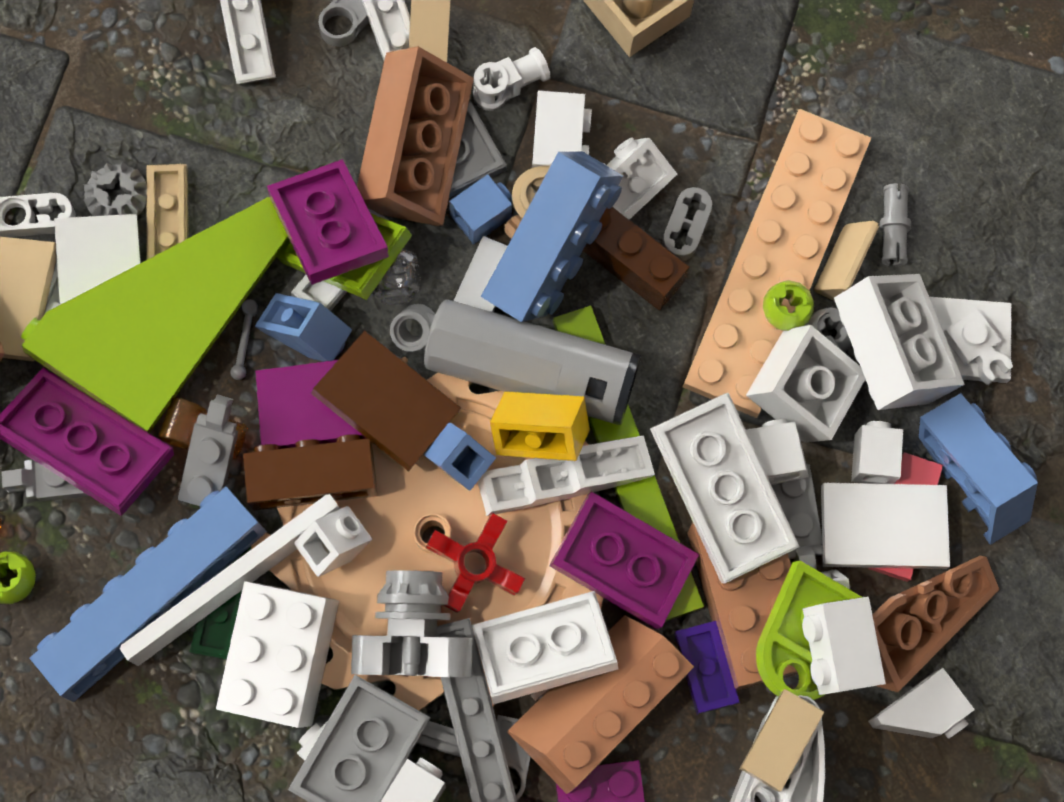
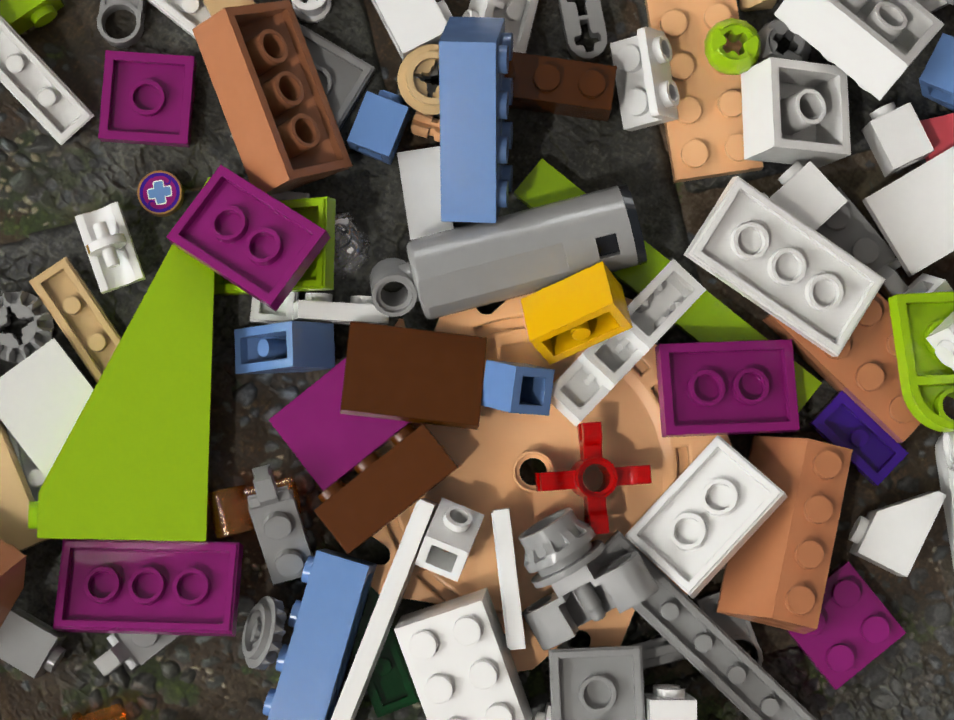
camera: 25 degrees left, 10 degrees up
(145, 528) = (263, 633): none -> light grey gear
(222, 175) = (110, 248): none -> white hips
(249, 309) = (220, 360): light grey hinge -> none
(286, 160) = (160, 193): none -> tile
(322, 88) = (147, 98): none -> magenta plate
(351, 313) = (320, 308): none -> white plate
(360, 600) = (508, 579): none -> white tile
(690, 759) = (896, 532): none -> white slope
(706, 293) = (645, 79): none -> white bracket

